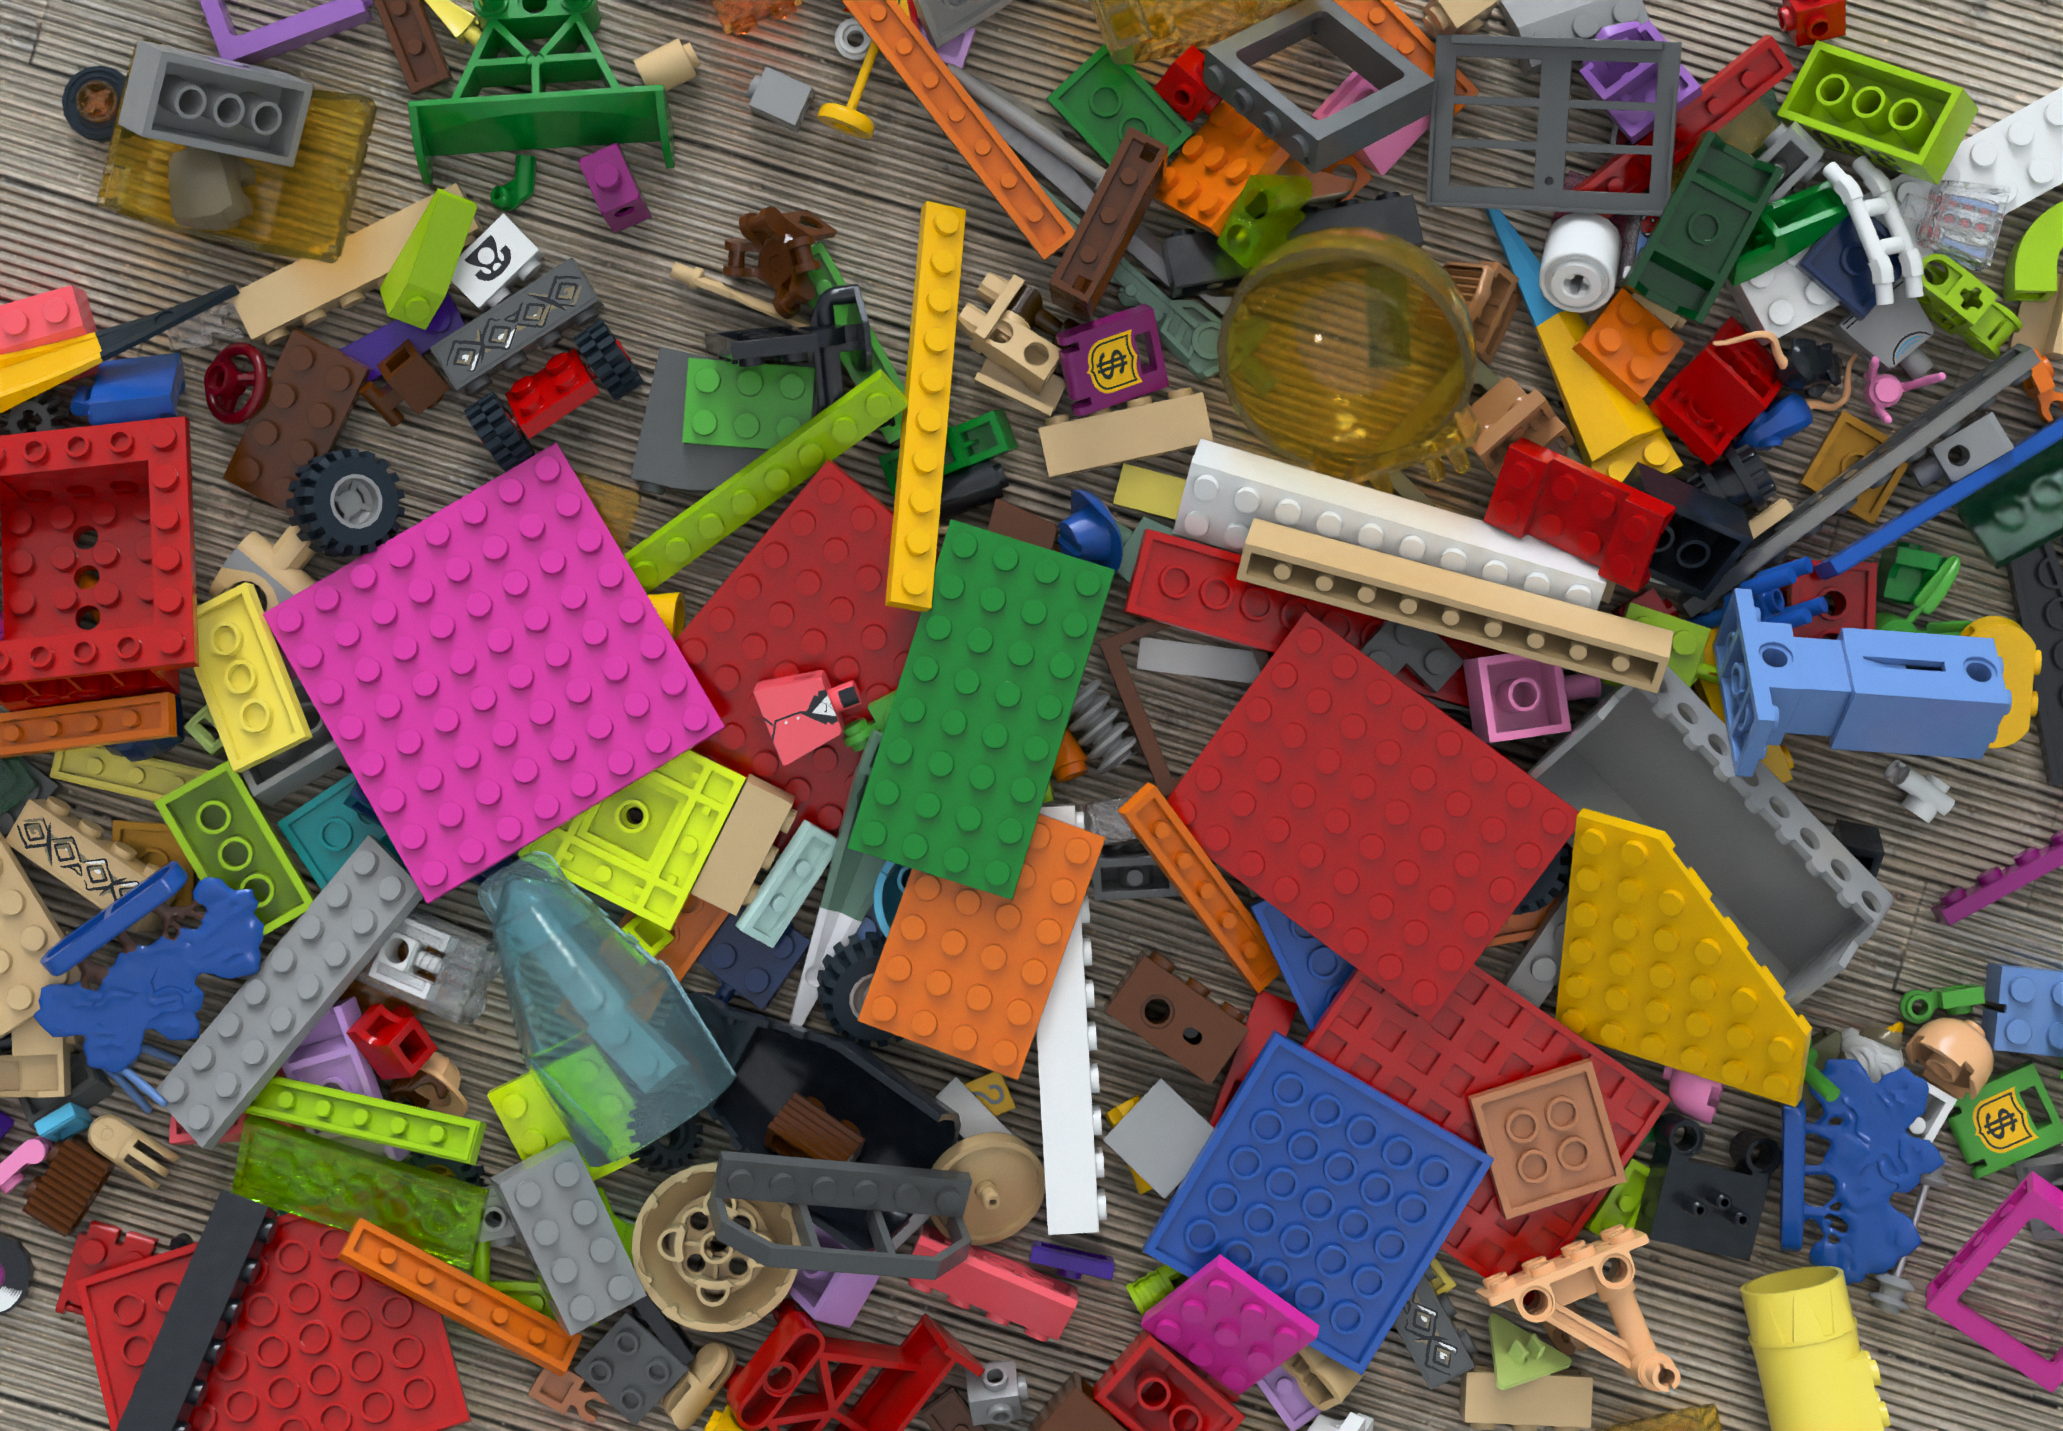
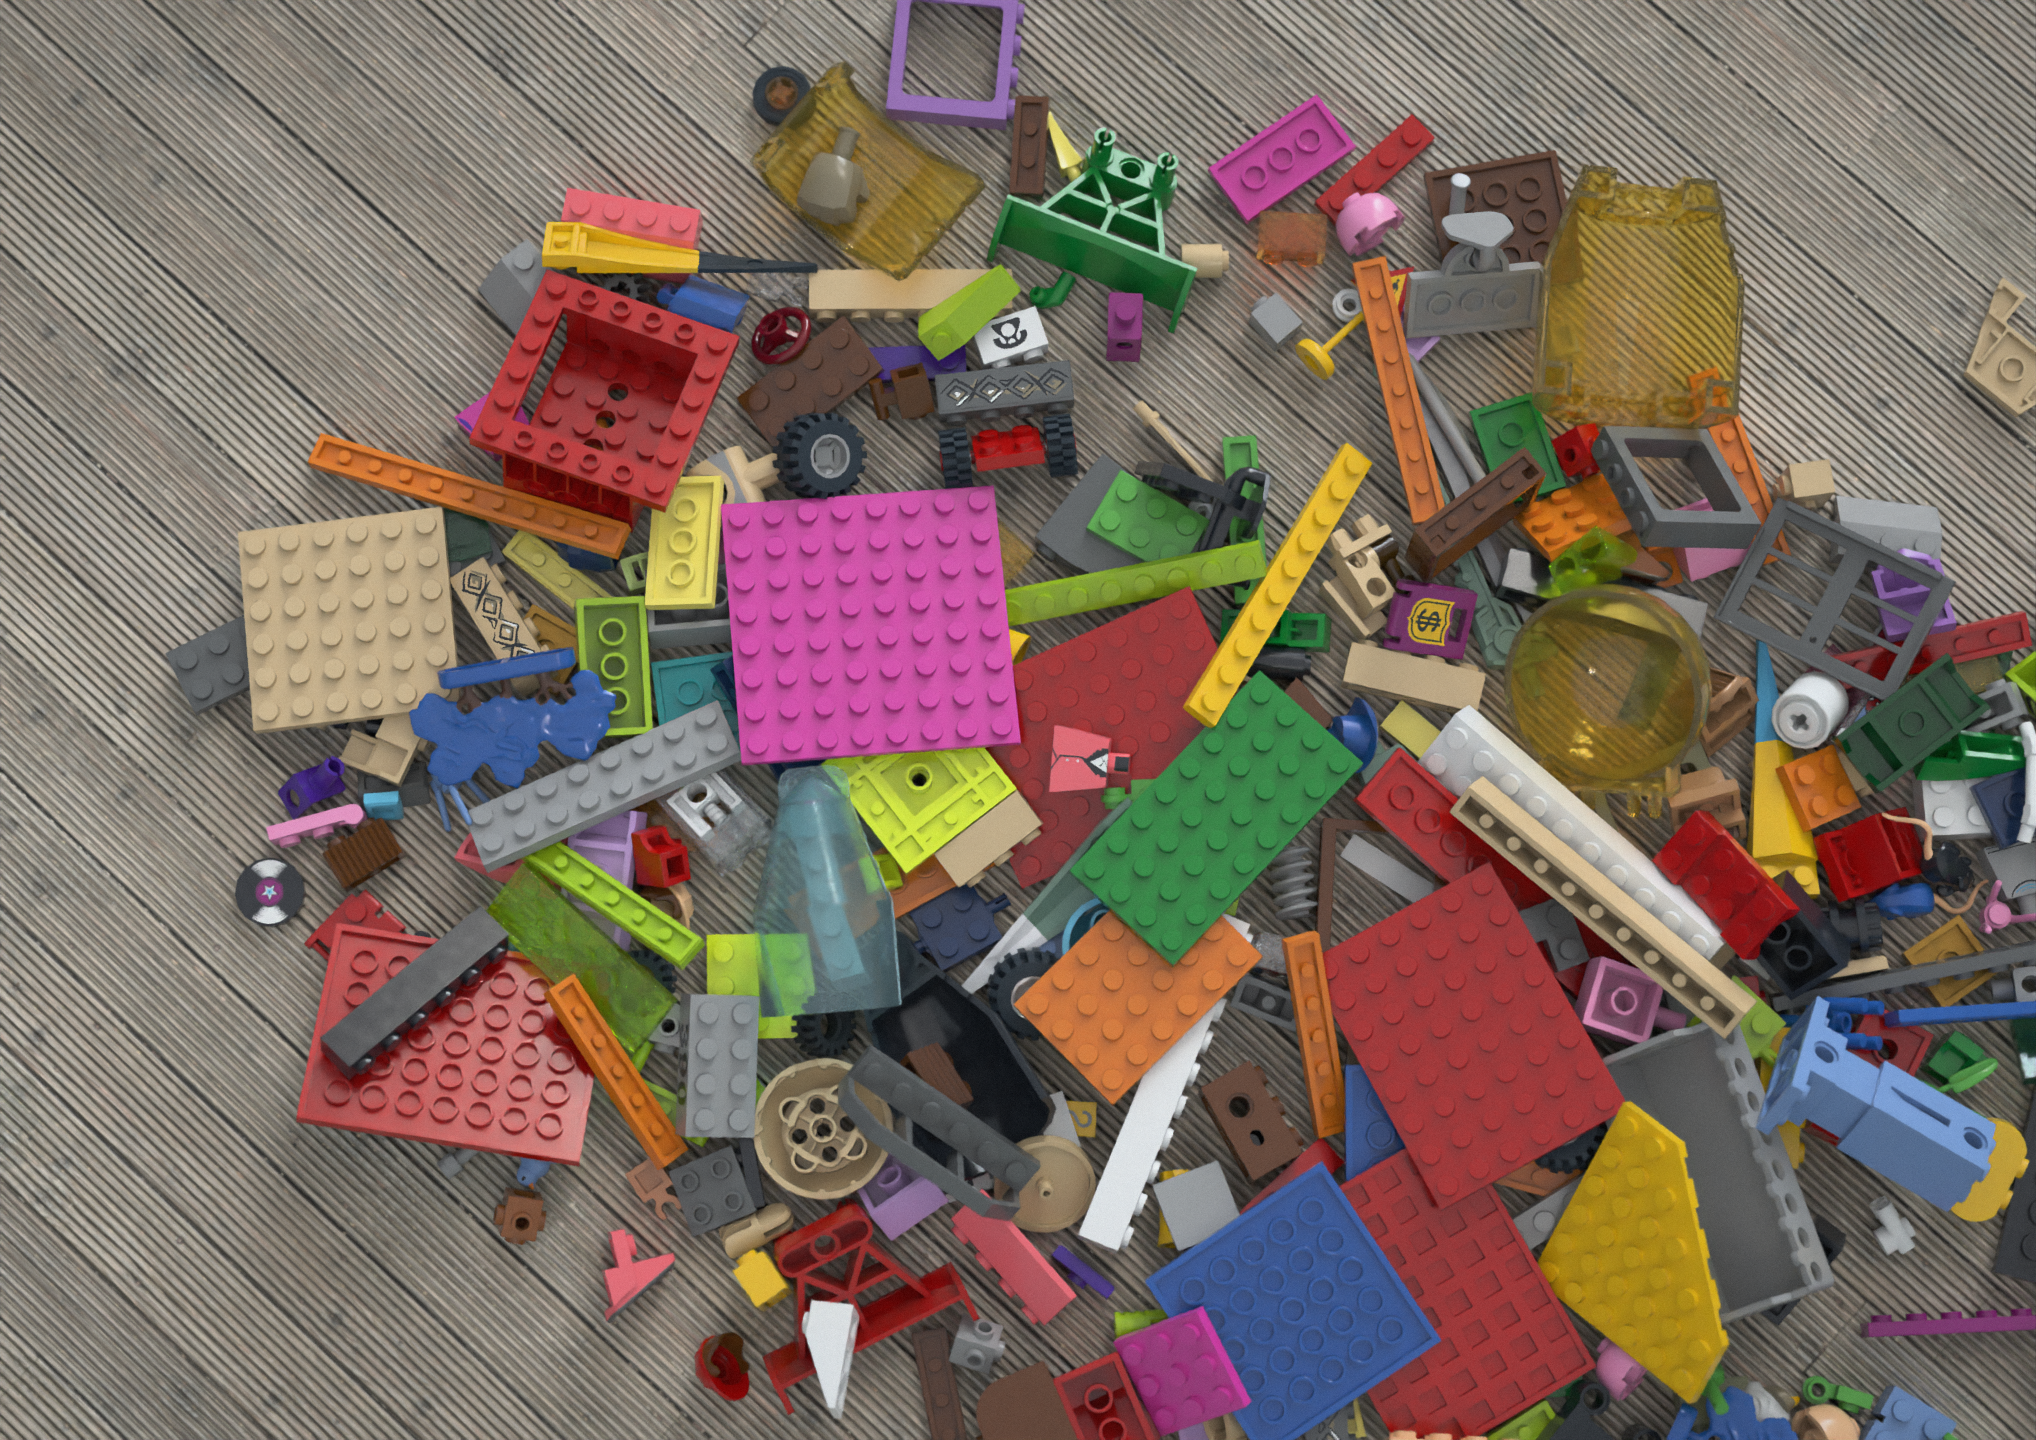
camera: 25 degrees right, 10 degrees down
(120, 1141) = (418, 841): tan arm -> none
(215, 104) = (871, 131): light grey brick -> none
(782, 259) = (1221, 434): reddish brown piece -> none
(788, 884) = (1008, 884): light aqua plate -> none
(1070, 759) = (1258, 895): orange cone -> none
(1547, 1138) = (1488, 1347): nougat plate -> none

